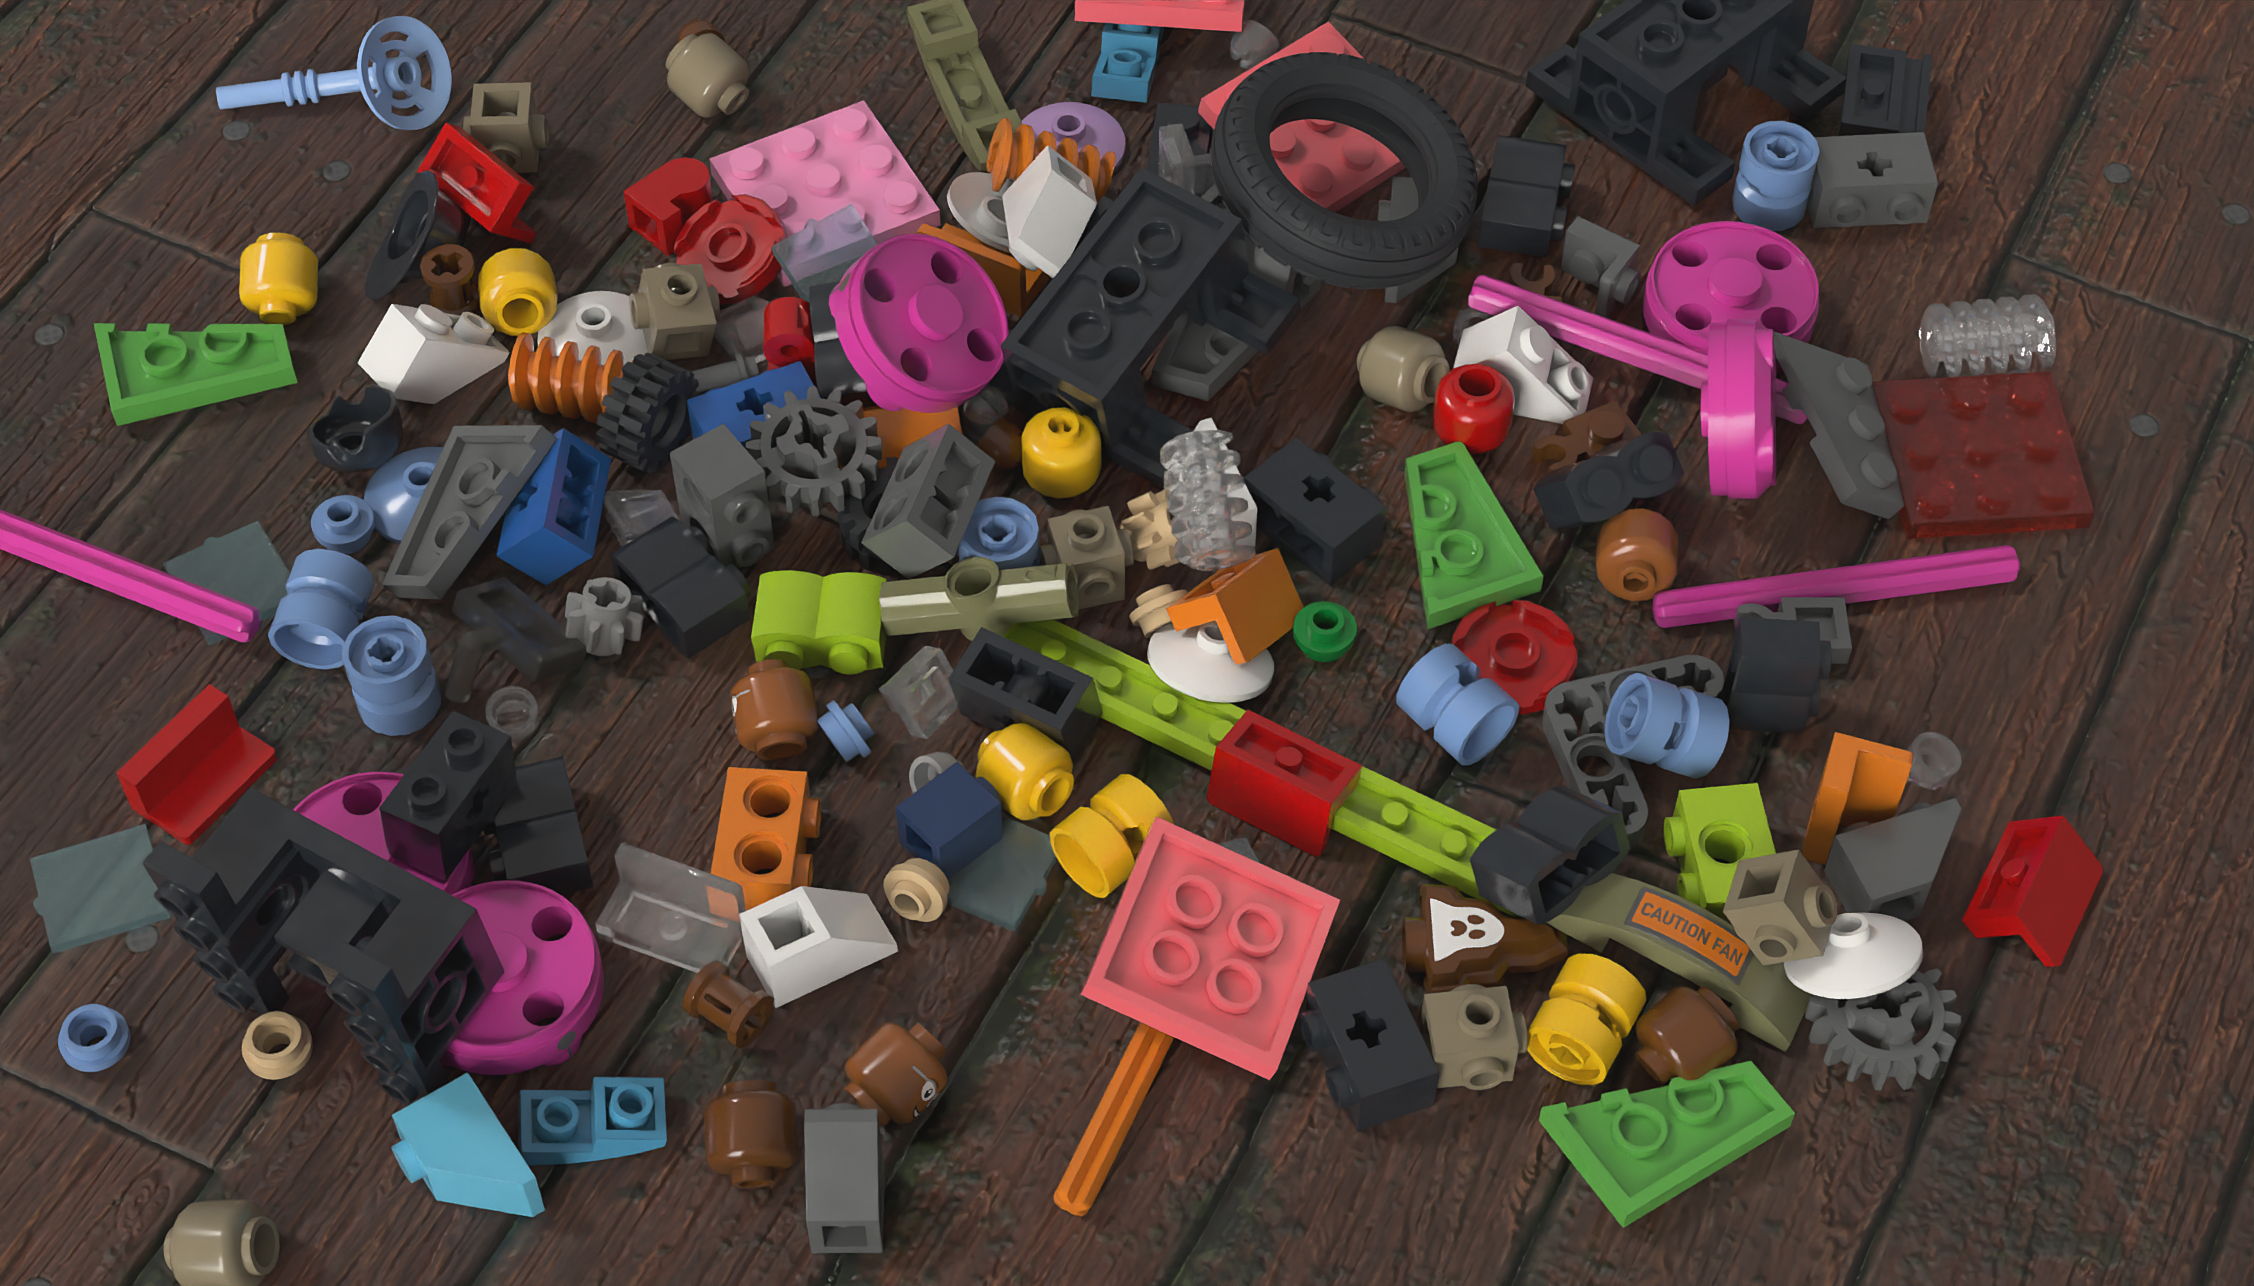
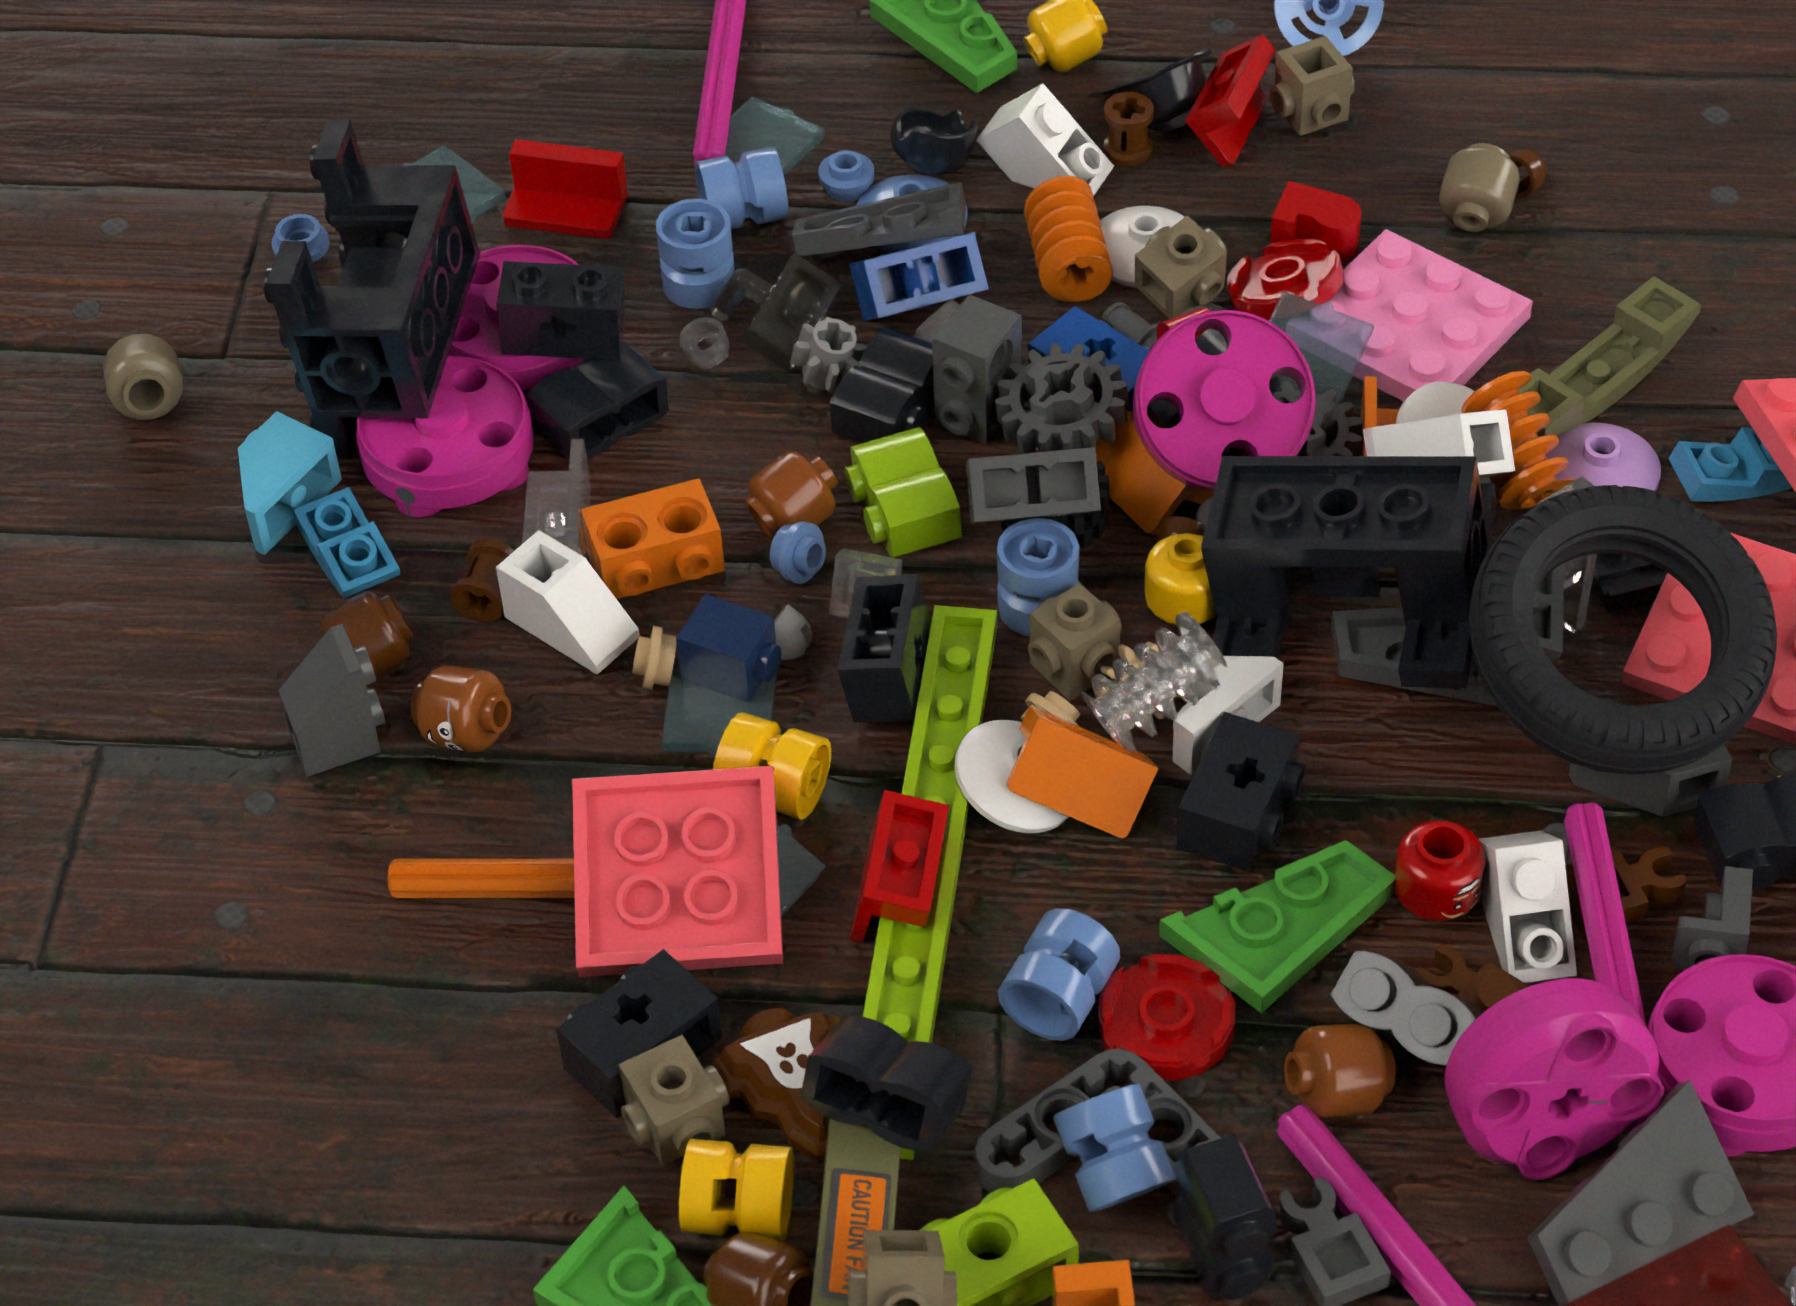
camera: 70 degrees right, 5 degrees down
(517, 291) = (1143, 170): yellow head -> none
(646, 412) = (1052, 267): black tyre -> none
(979, 596) = (967, 574): olive piece -> none
(1026, 771) = (806, 683): yellow head -> none
(1320, 643) = (1106, 867): green plate -> none
(1401, 368) = (1466, 792): dark tan head -> none

